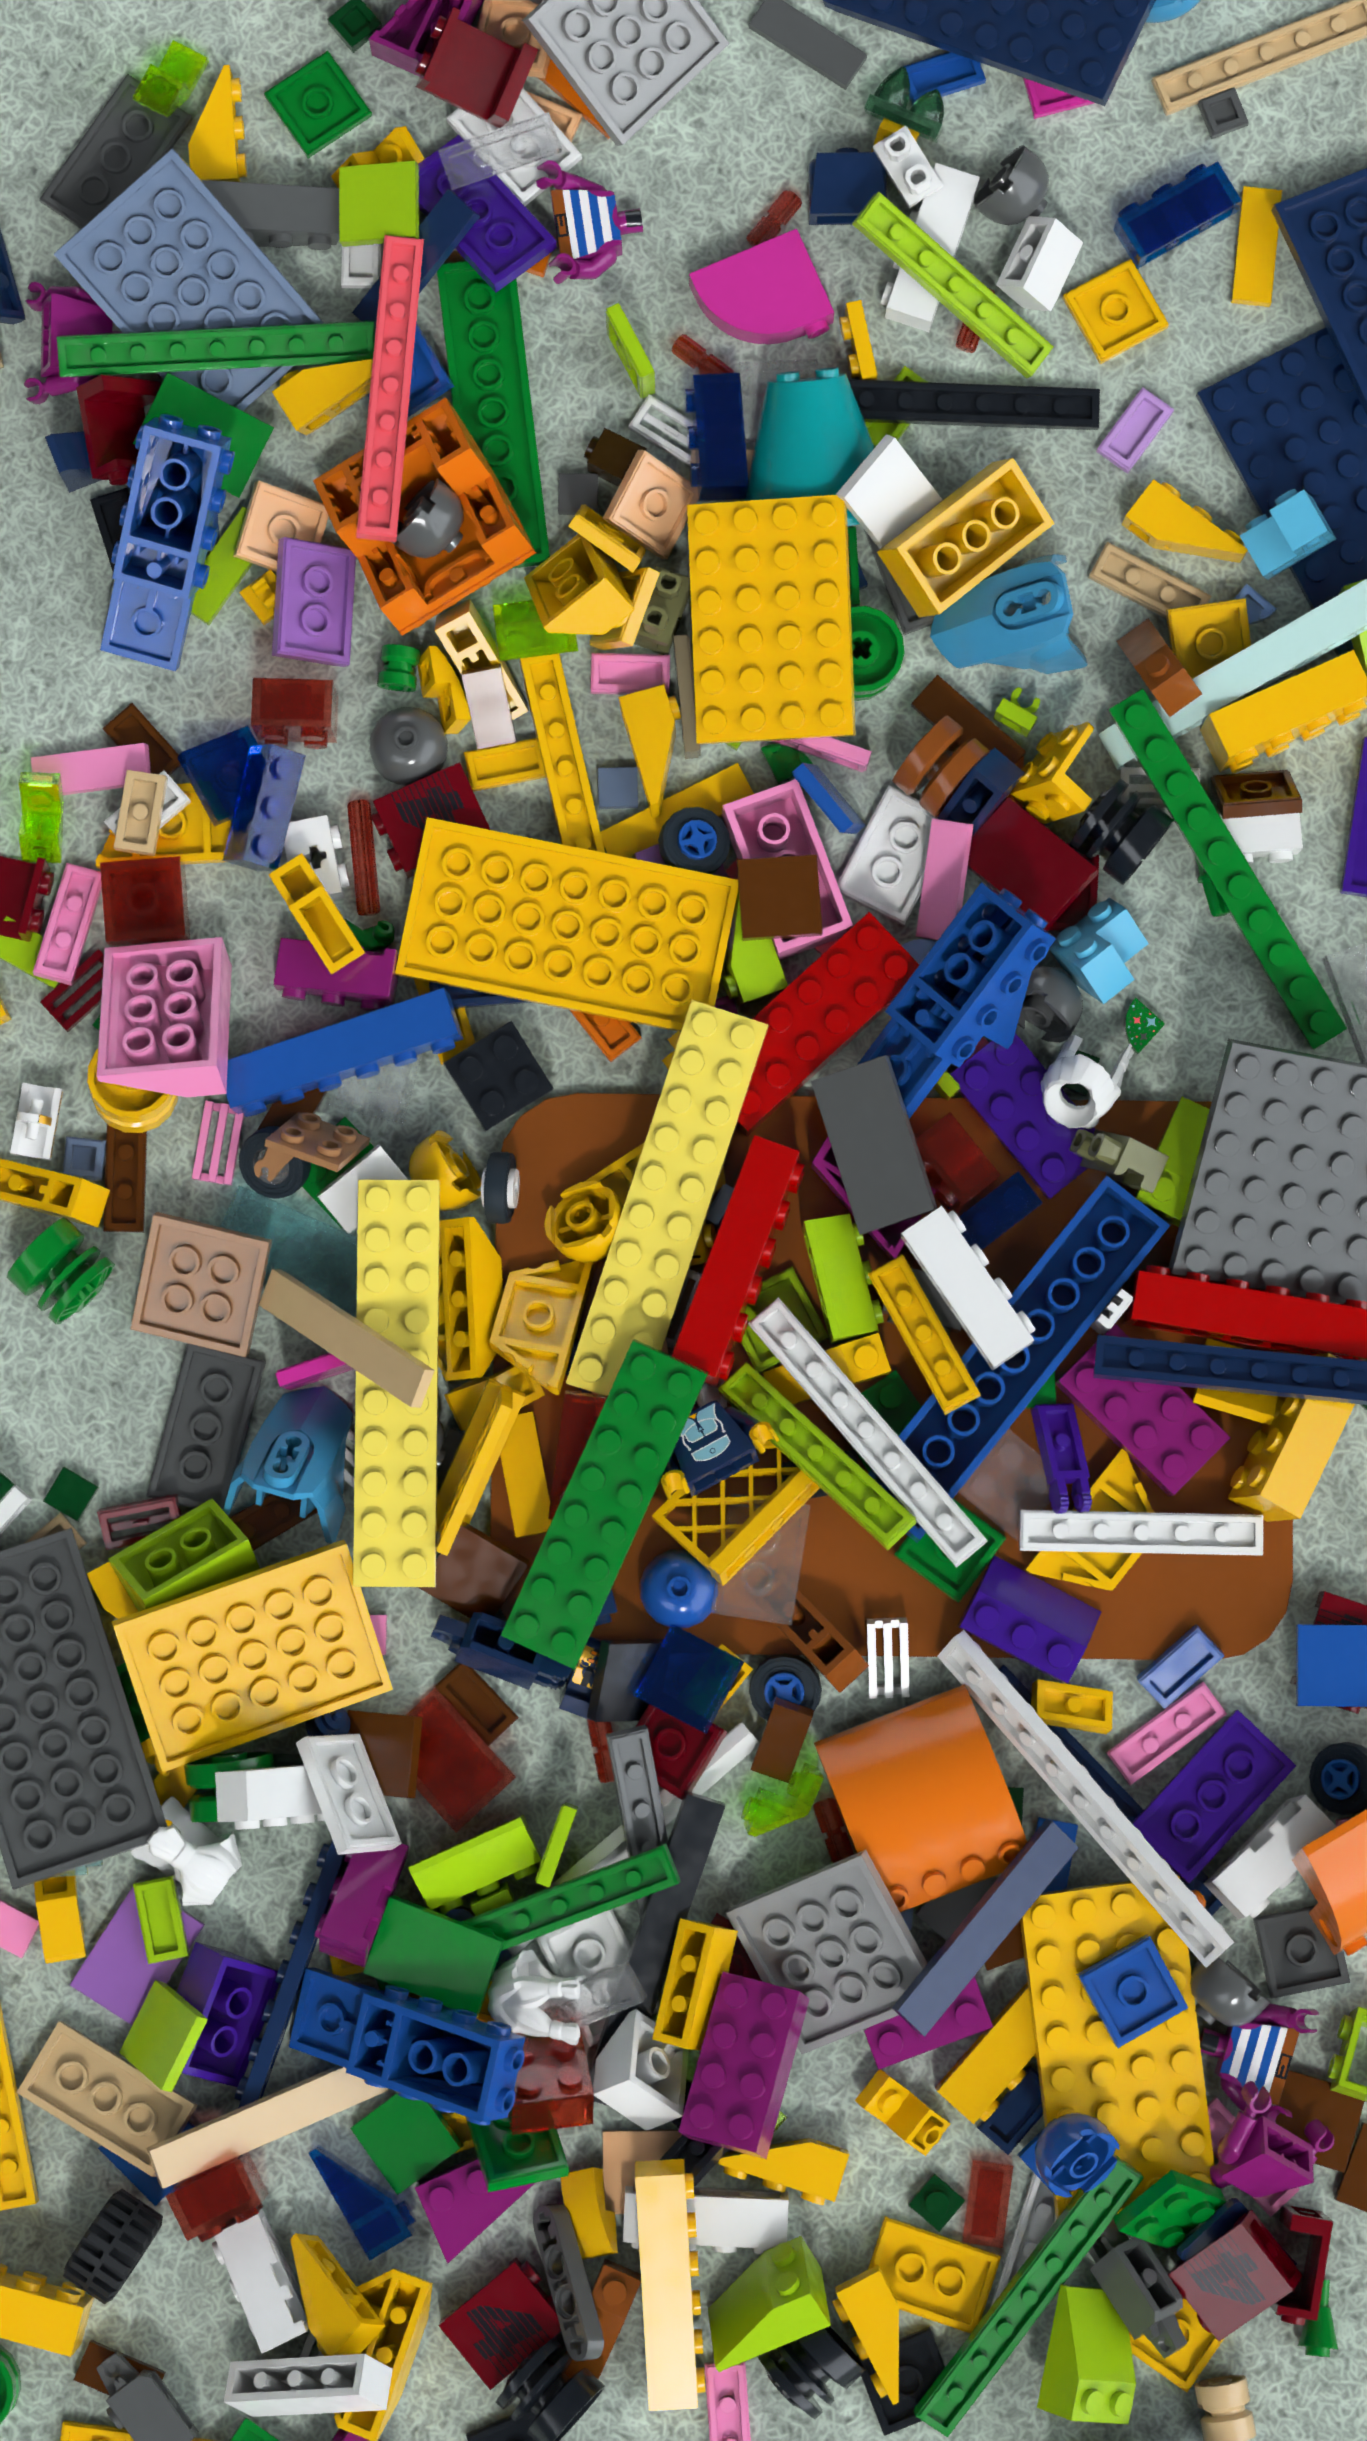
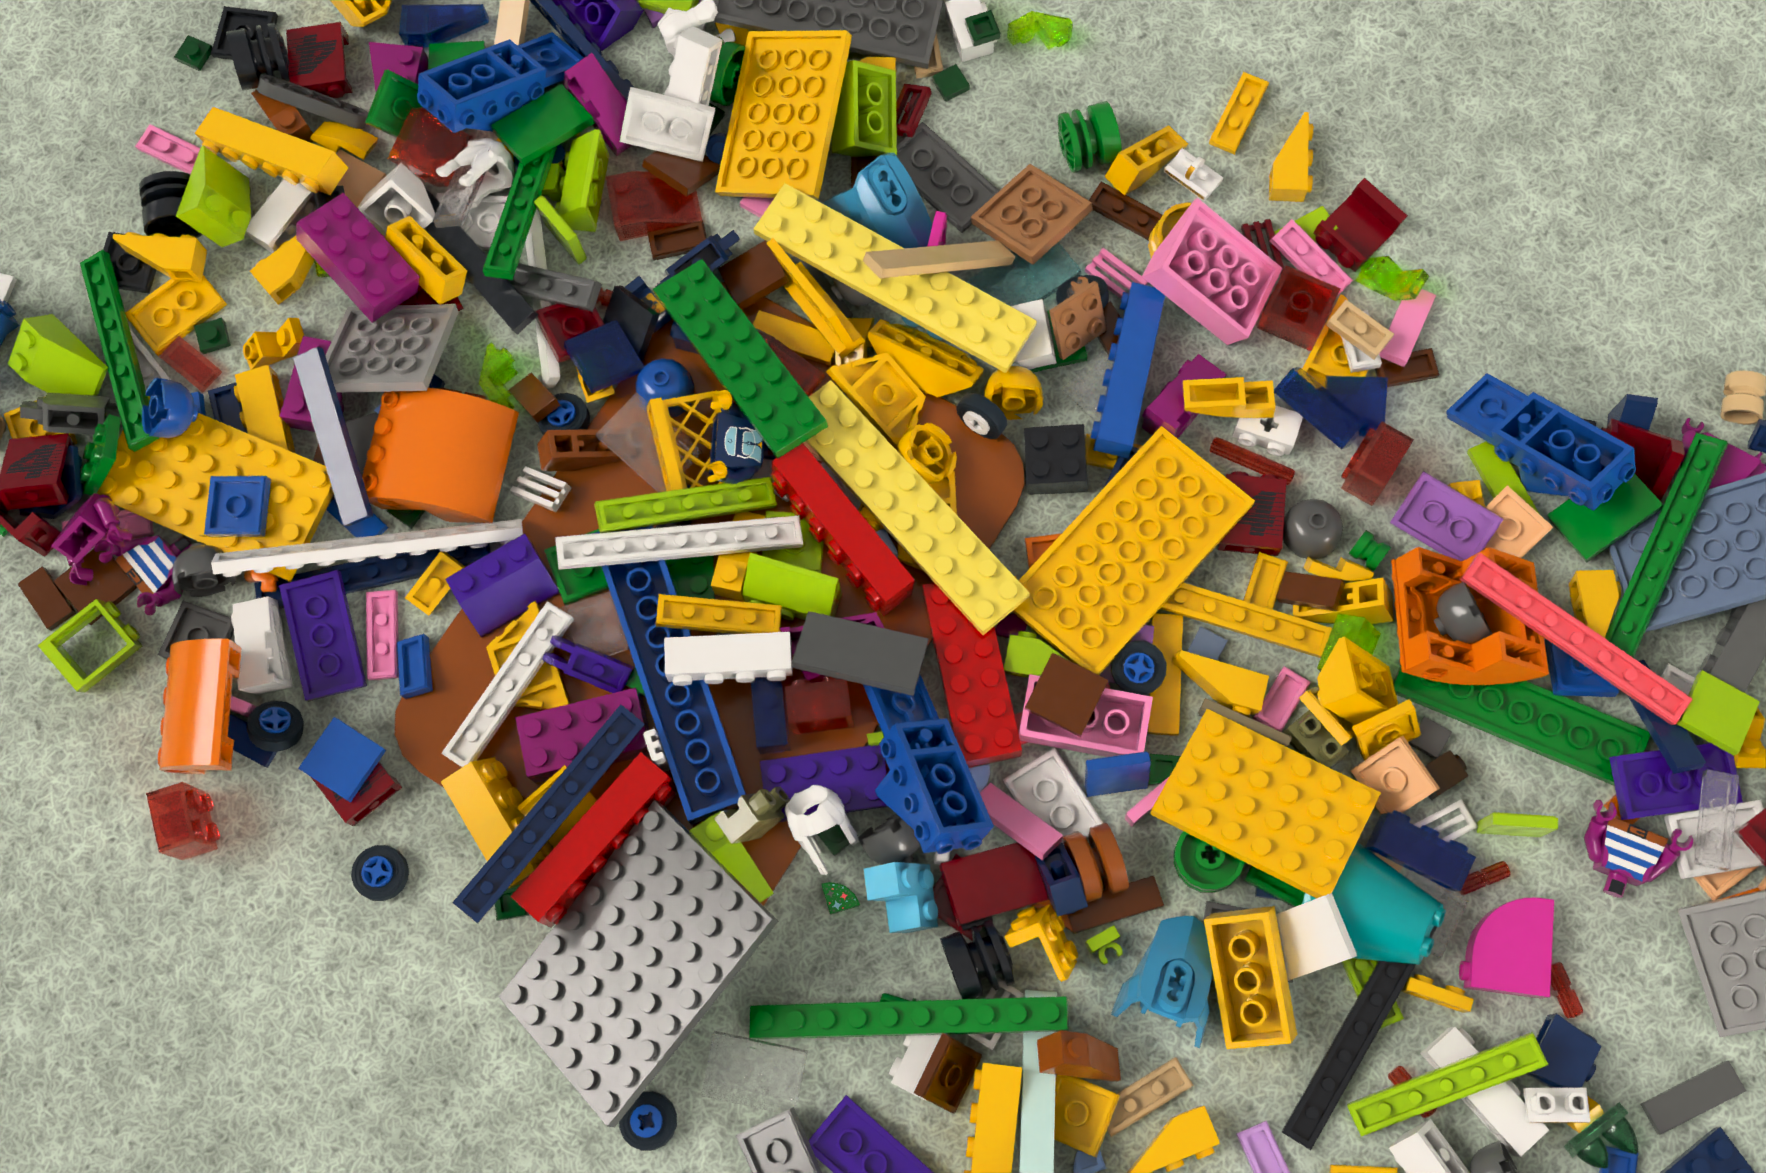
camera: 130 degrees right, 10 degrees down
(84, 1158) = (1154, 194): sand blue tile -> none
(374, 937) = (1195, 433): green arm -> none

